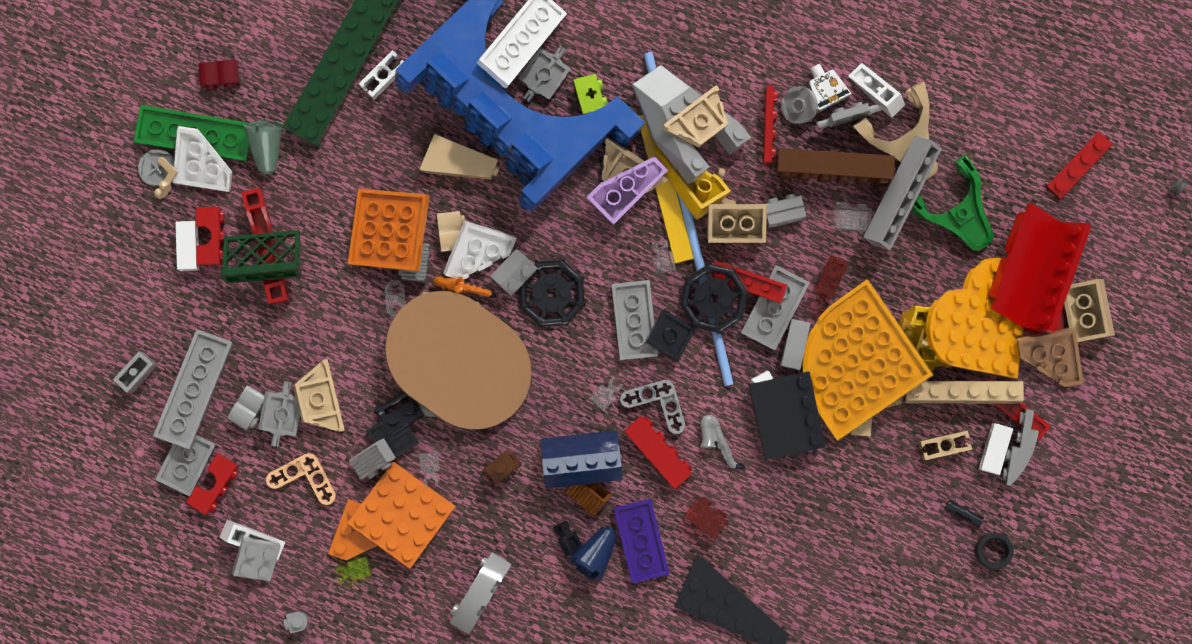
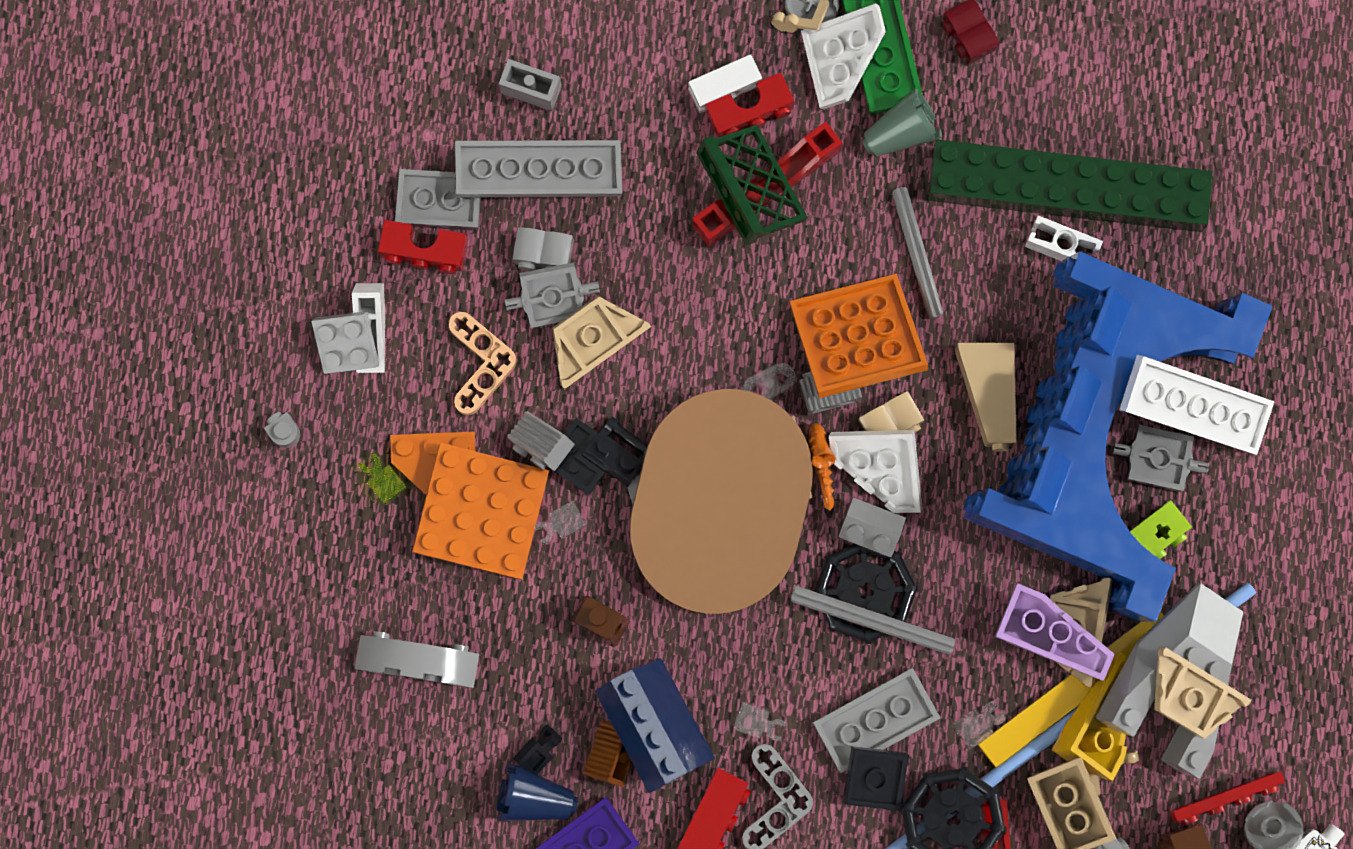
camera: 70 degrees right, 5 degrees down
(350, 169) = (917, 253): none -> light grey axle
(571, 296) = (873, 620): none -> light grey axle

